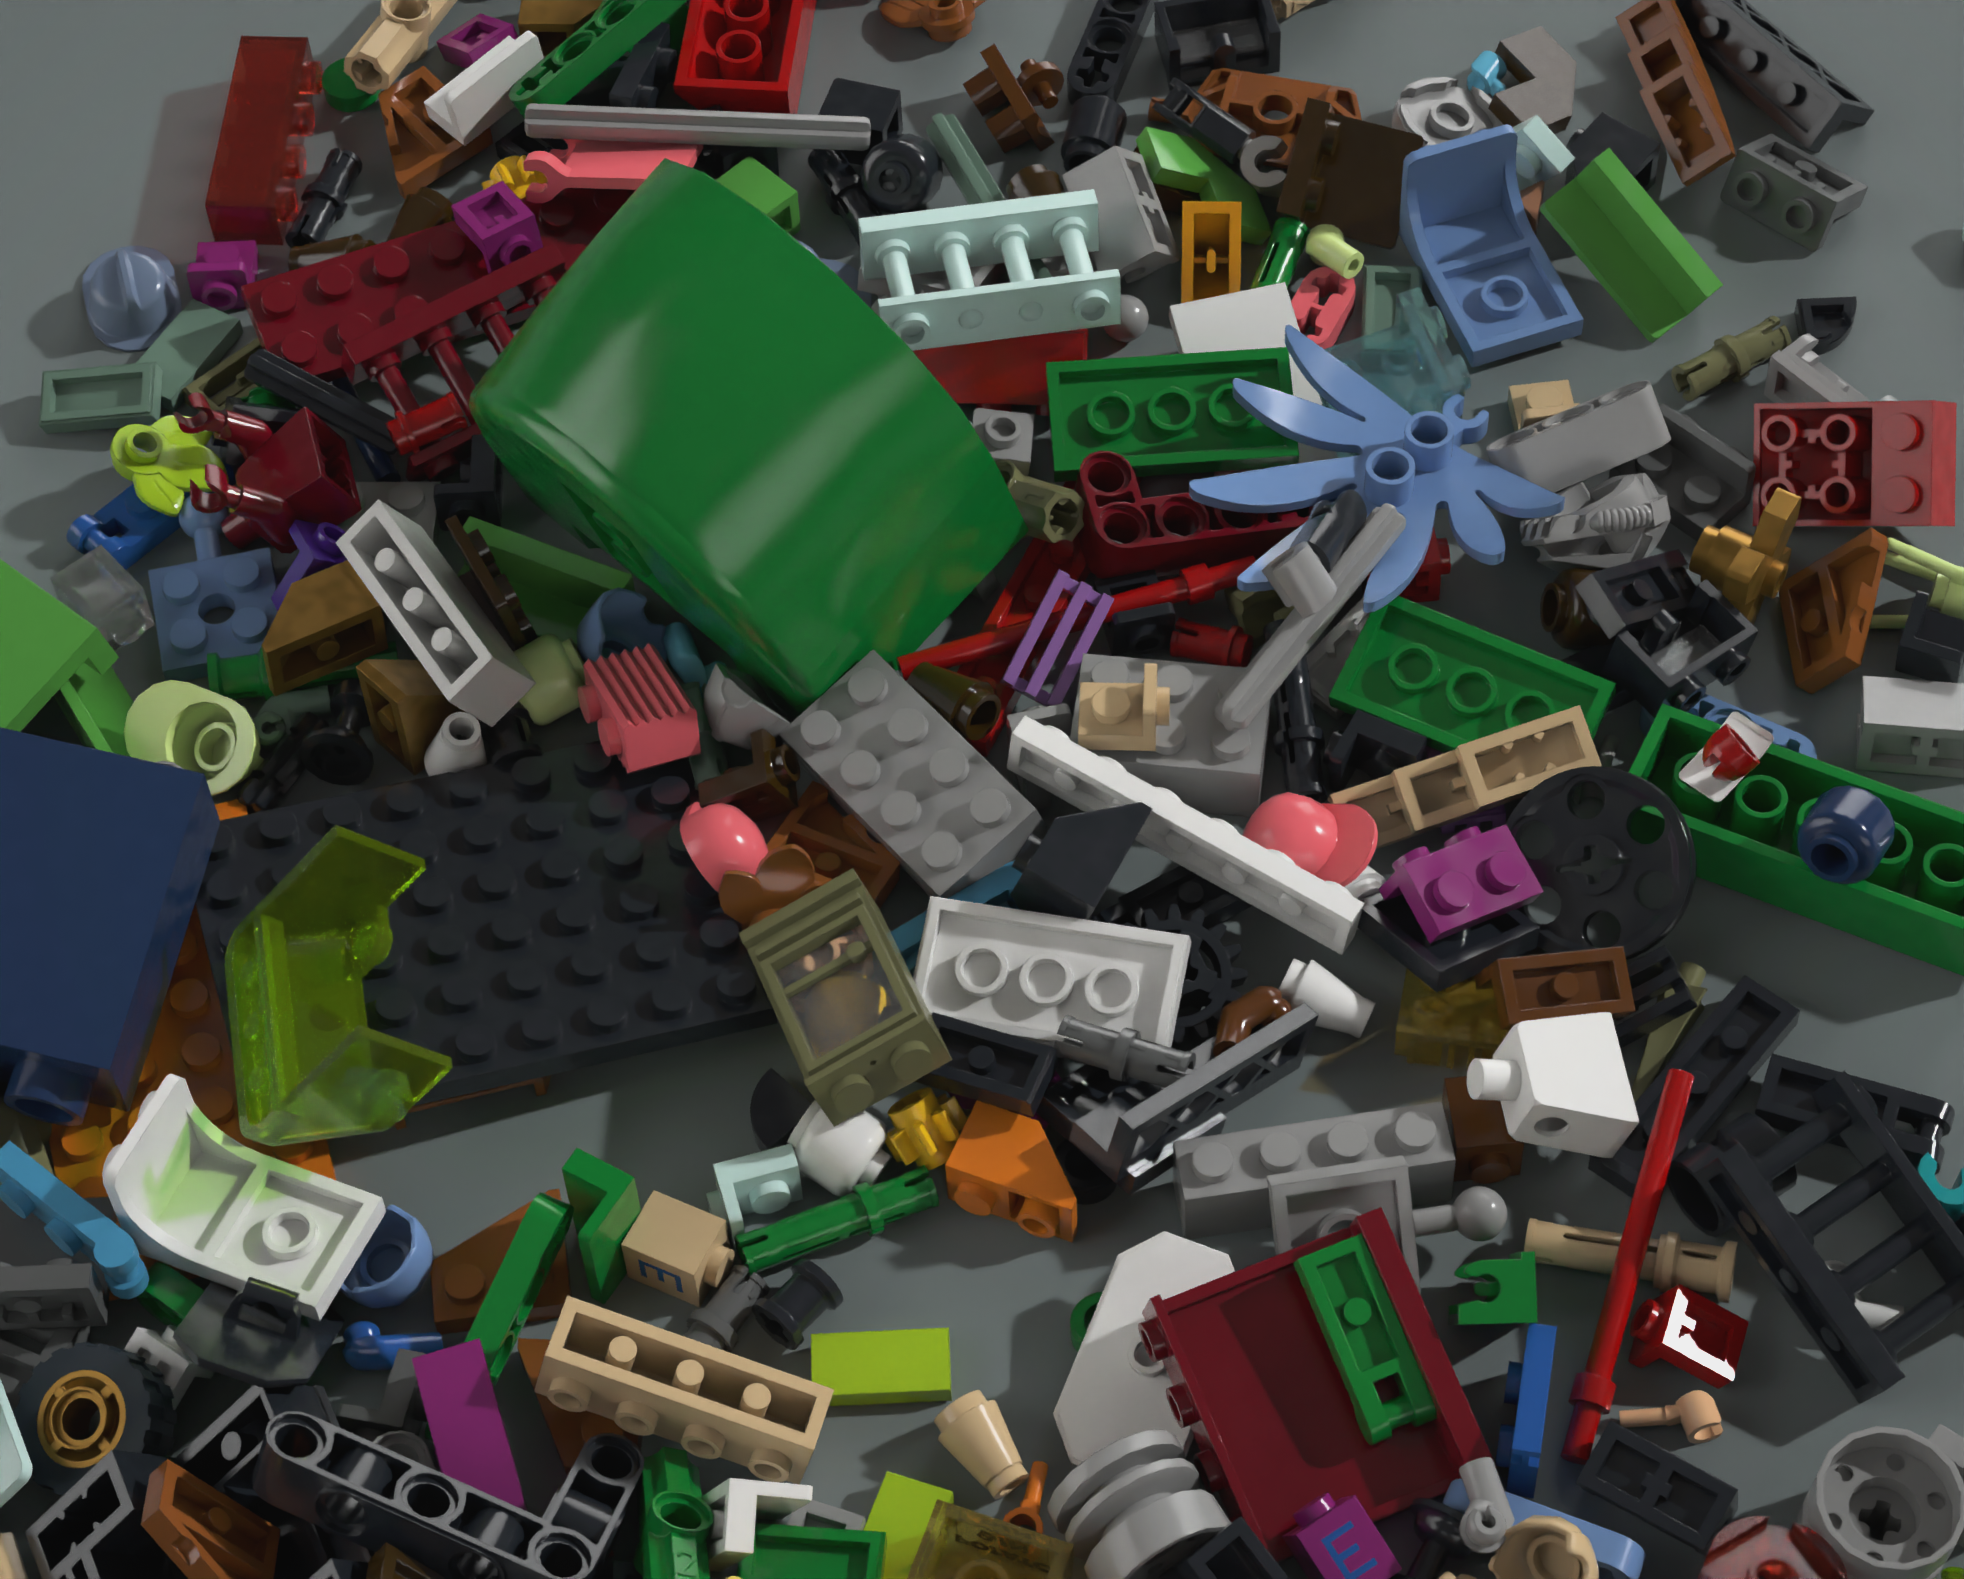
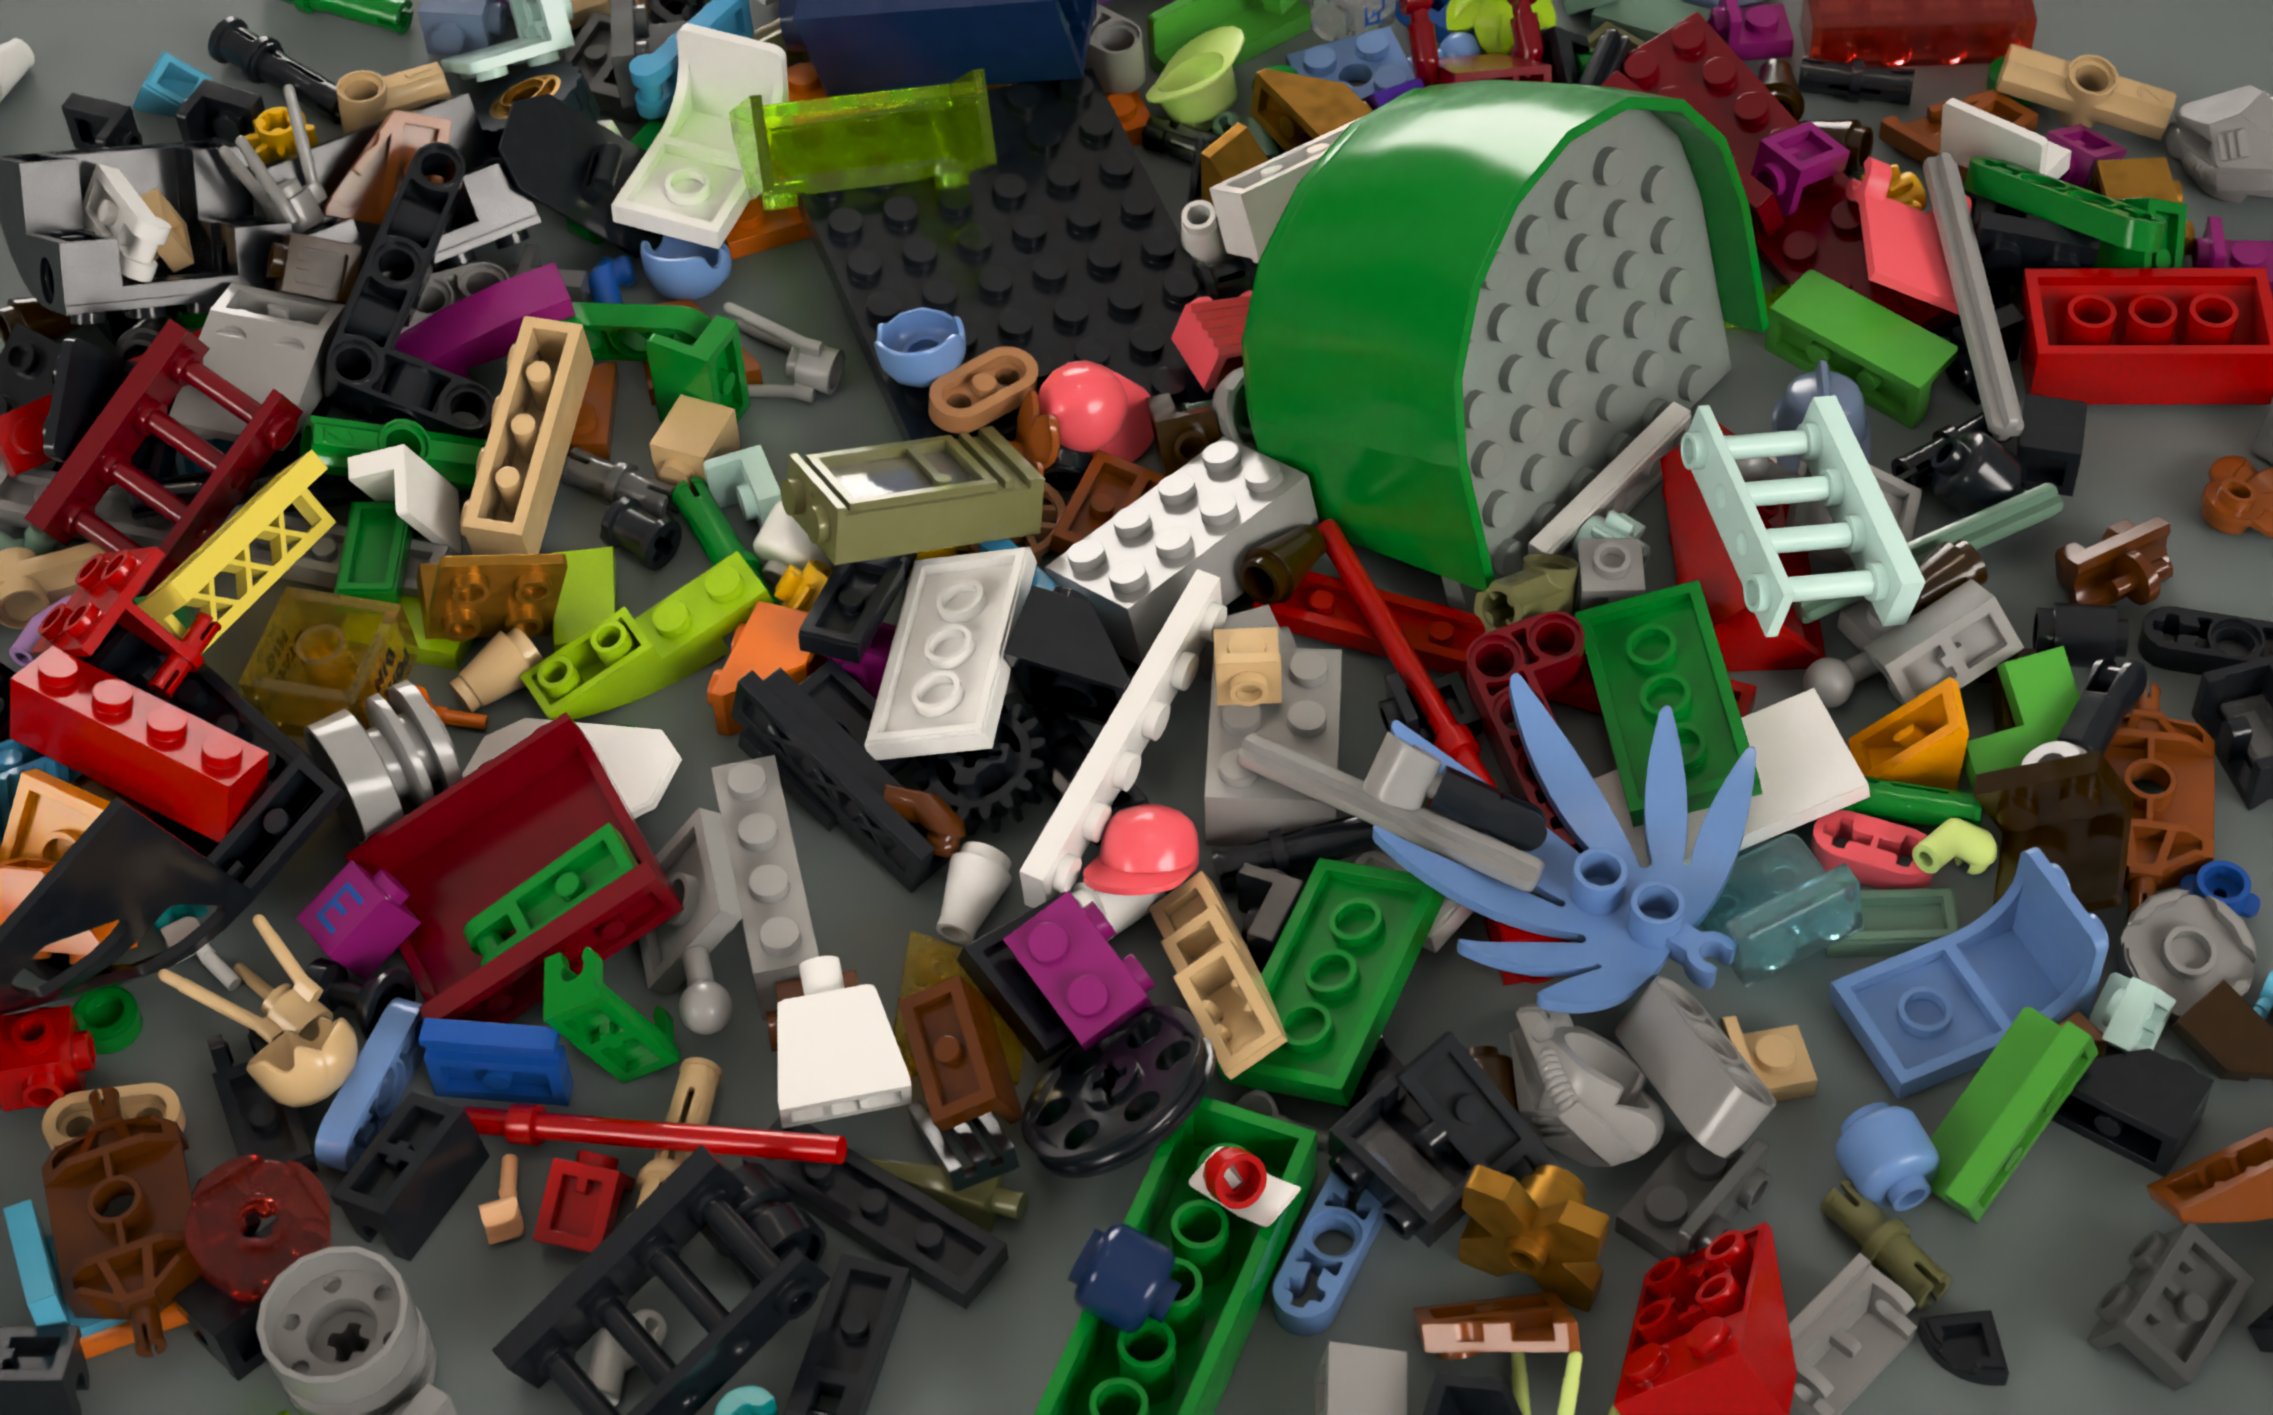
camera: 85 degrees right, 5 degrees down
(566, 1127) = (809, 361): none -> light grey plant
(640, 972) = (920, 346): none -> medium blue hair
(703, 934) = (975, 393): none -> medium nougat plate
(893, 1441) = (490, 593): none -> pearl gold bracket
(968, 1287) = (635, 657): none -> lime slope
(1081, 594) = (1368, 611): medium lavender tile -> none
(1122, 1053) = (859, 698): dark grey pin -> none
(1377, 93) = (2225, 880): none -> blue plate
(1488, 1510) = (365, 1009): light grey arm -> none
(1658, 336) = (1887, 1156): none -> medium blue head

